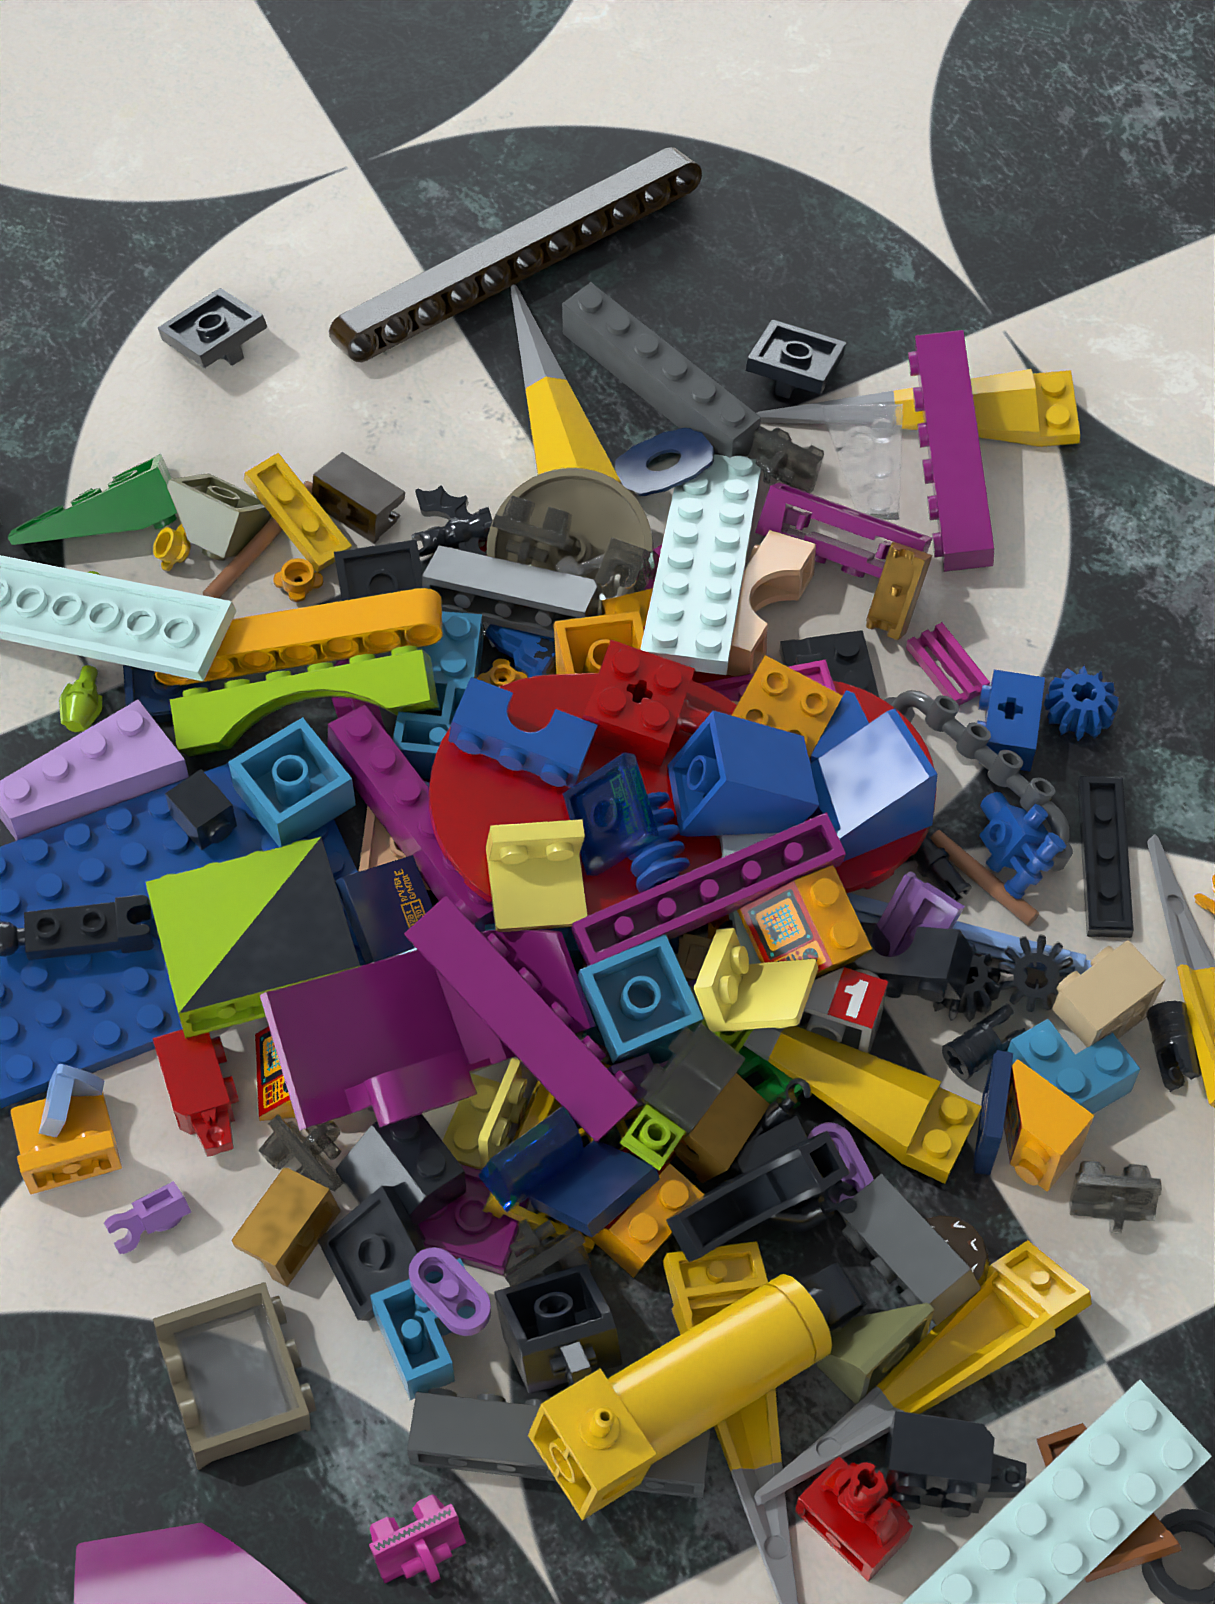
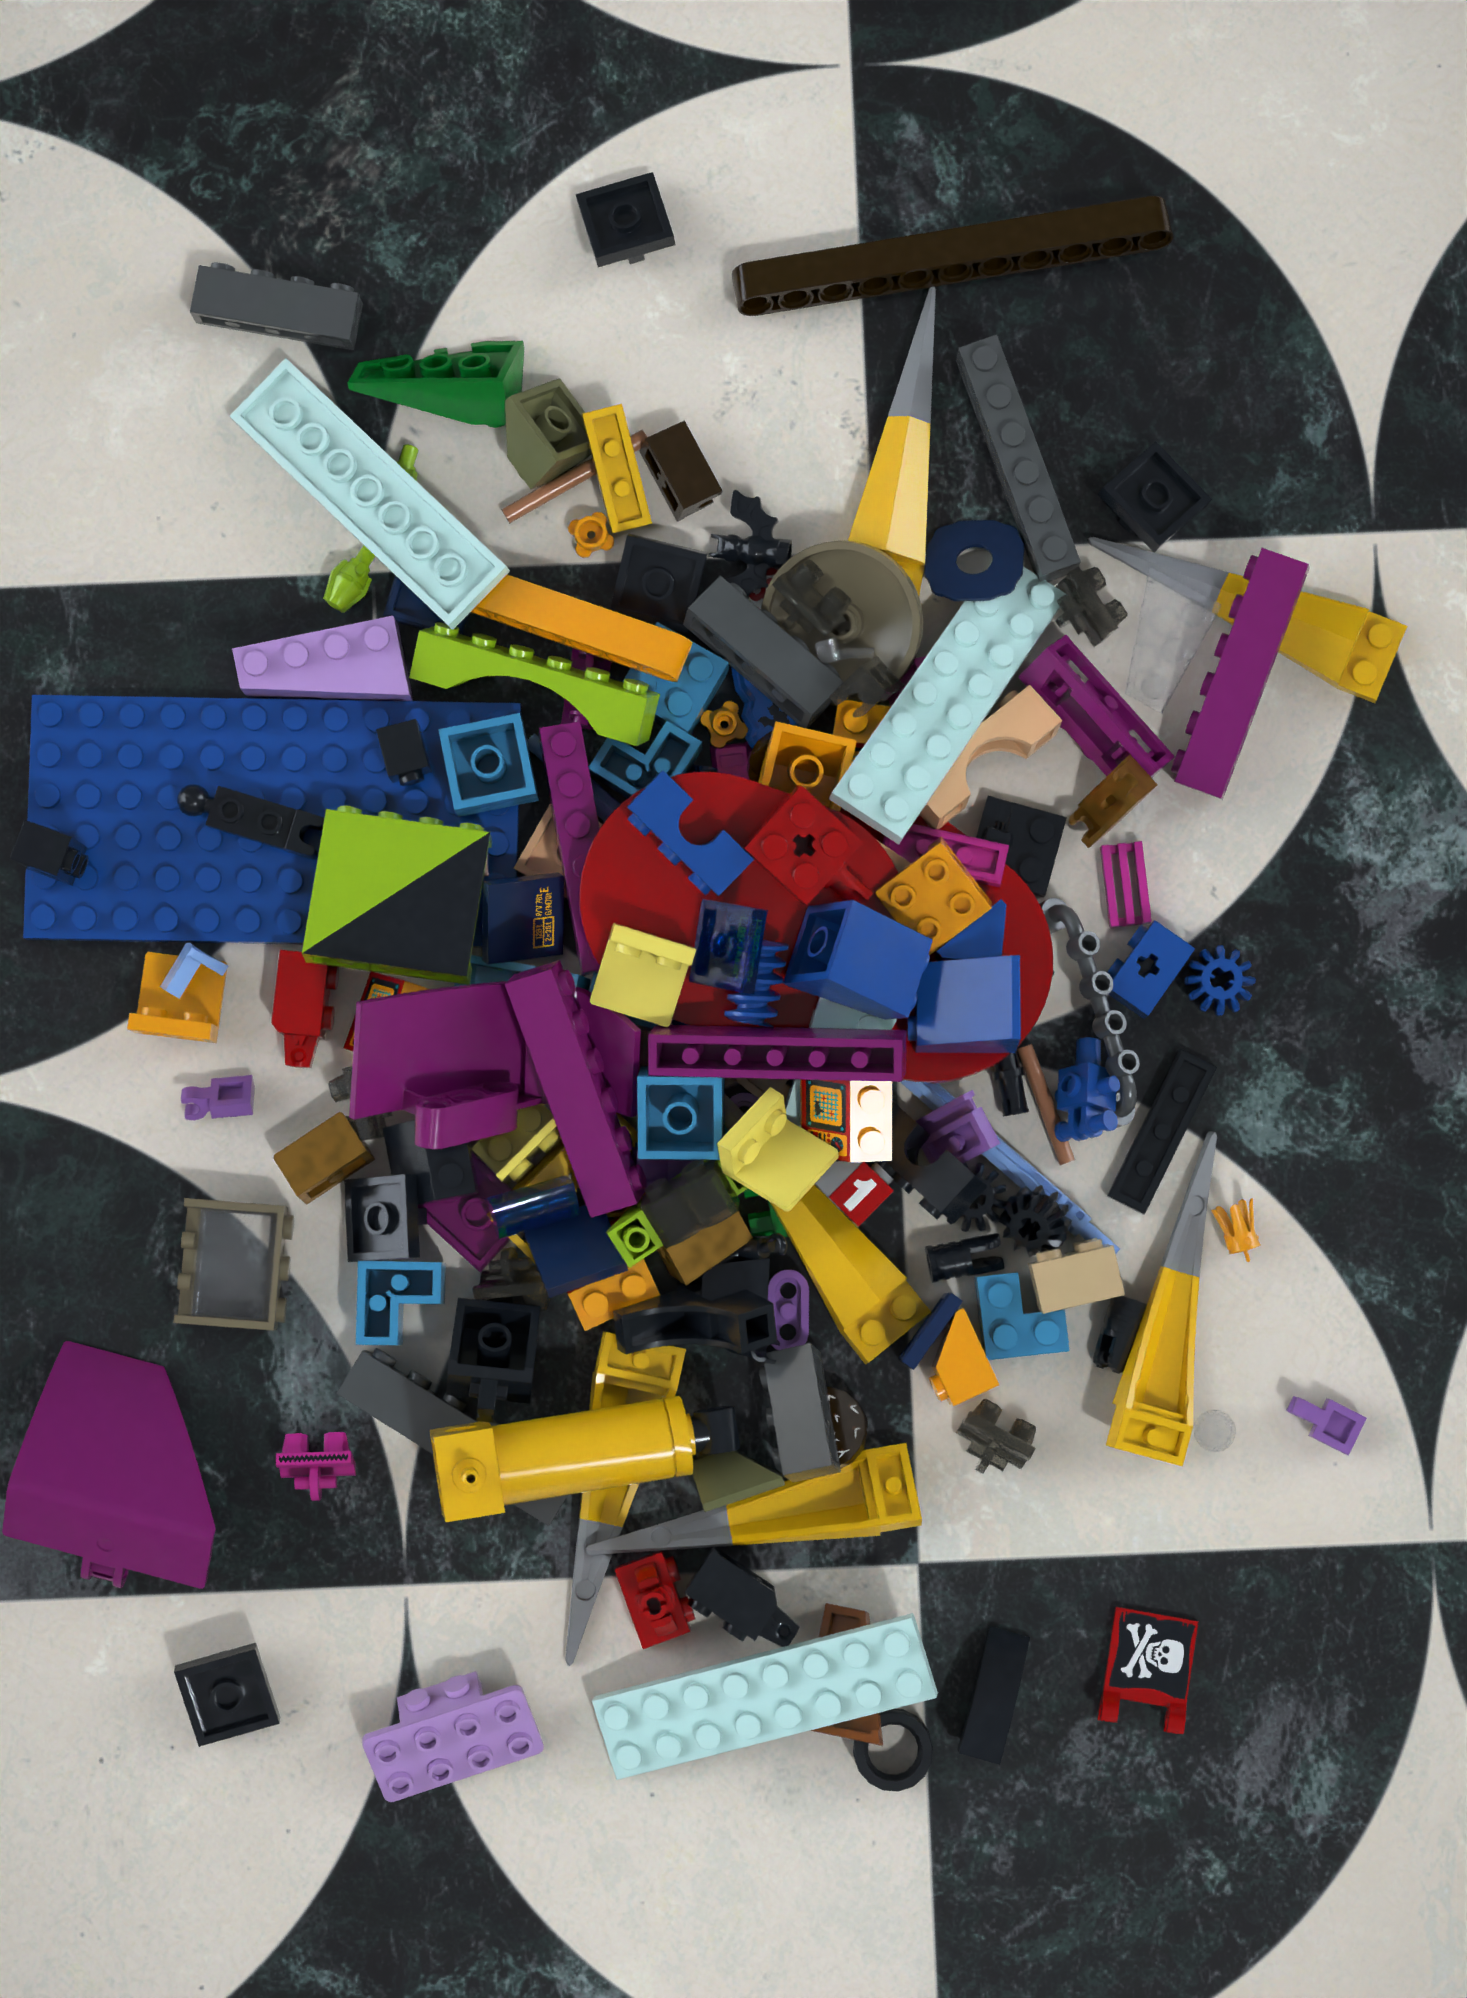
camera: 30 degrees right, 25 degrees up
(171, 547) = (491, 452): yellow plate -> none
(451, 1293) = (417, 1292): medium lavender plate -> none

